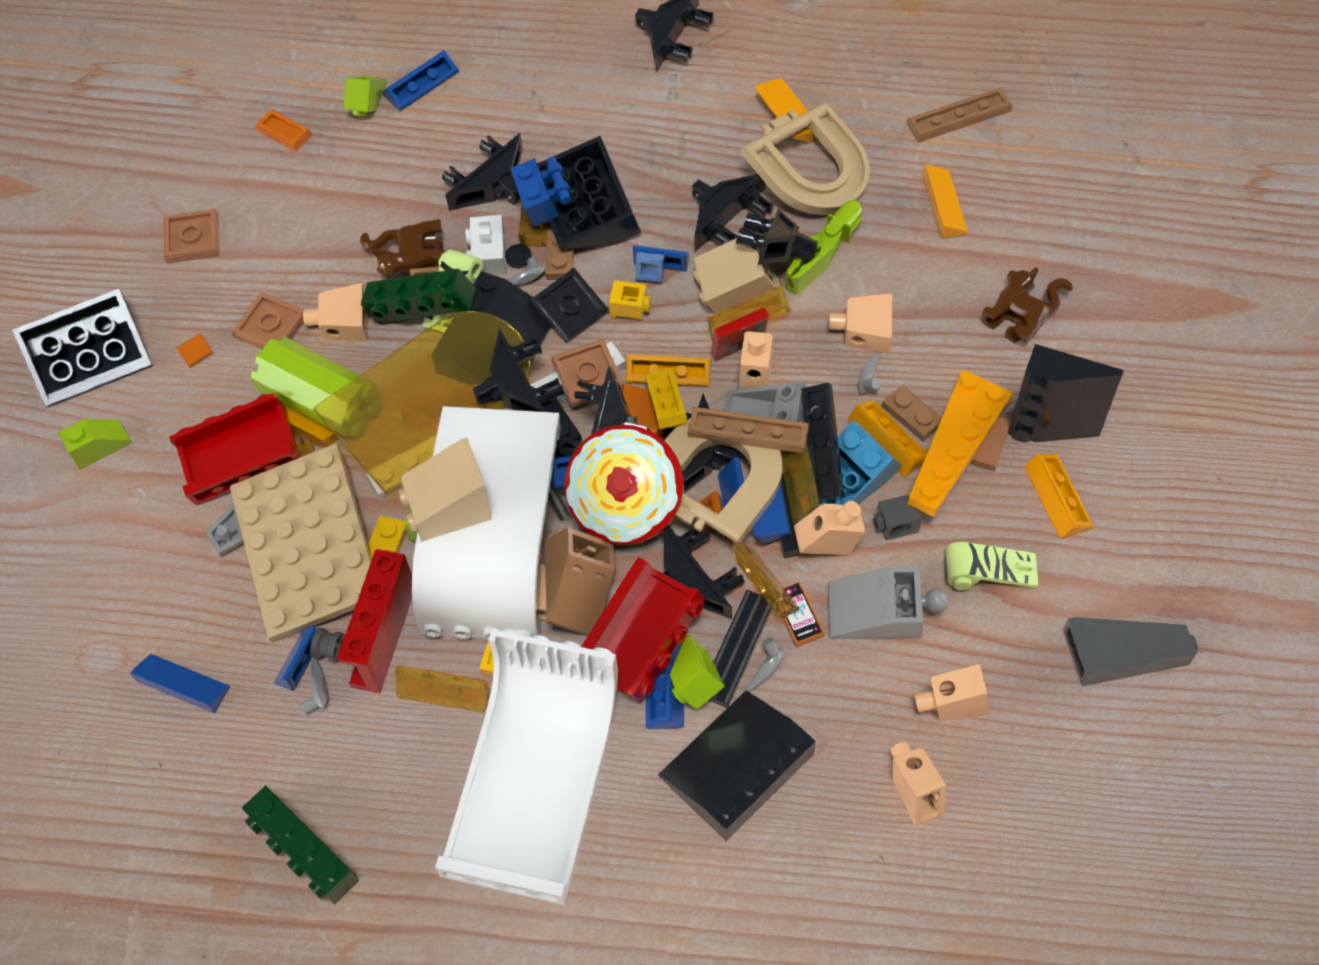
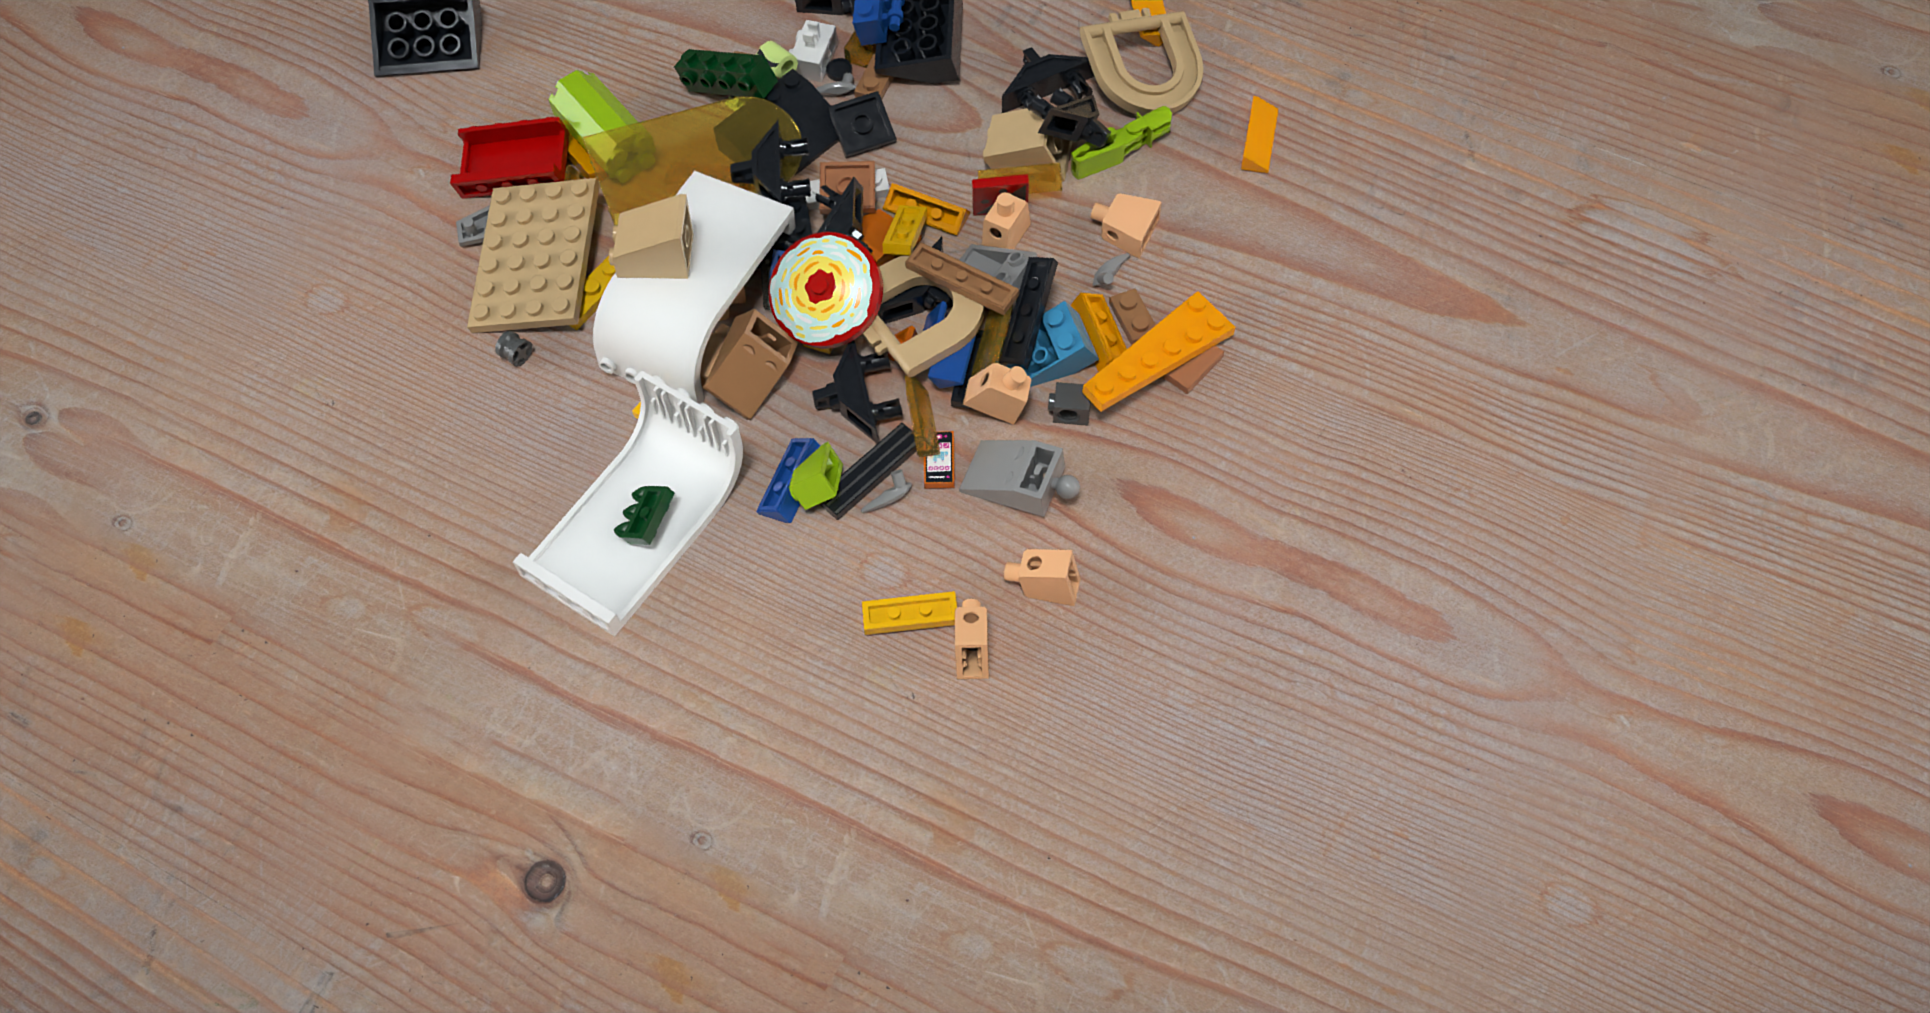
camera: 20 degrees right, 0 degrees up
(93, 440) = (398, 114): lime slope -> none
(180, 682) = (379, 340): blue slope -> none
(194, 350) = (518, 65): orange slope -> none
(268, 320) = (596, 57): nougat tile -> none
(296, 661) = (480, 356): blue slope -> none
(303, 848) = (411, 503): dark green brick -> none
(319, 689) = (490, 385): light grey bar -> none
(340, 314) = (654, 72): light nougat torso -> none
(377, 620) = (556, 340): red panel -> none
(416, 248) = (748, 31): reddish brown animal -> none
(442, 689) = (592, 417): clear yellow slope -> none
(543, 771) = (645, 515): none -> dark green plate
(629, 300) = (917, 136): yellow brick -> none
(644, 626) = (788, 421): red panel -> none
(649, 267) = (950, 113): medium blue tile -> none
(672, 258) = (965, 108): blue slope -> none
(738, 763) = (822, 570): black slope -> none
(843, 777) = (909, 613): none -> yellow plate
(959, 115) = (1314, 61): medium nougat tile -> none
(974, 562) = (1122, 465): yellowish green door -> none
(1023, 308) = (1283, 252): reddish brown animal -> none
(1058, 495) = (1237, 434): light orange slope -> none
(1063, 397) = (1268, 339): black slope -> none
(1123, 649) = (1231, 591): dark grey slope -> none

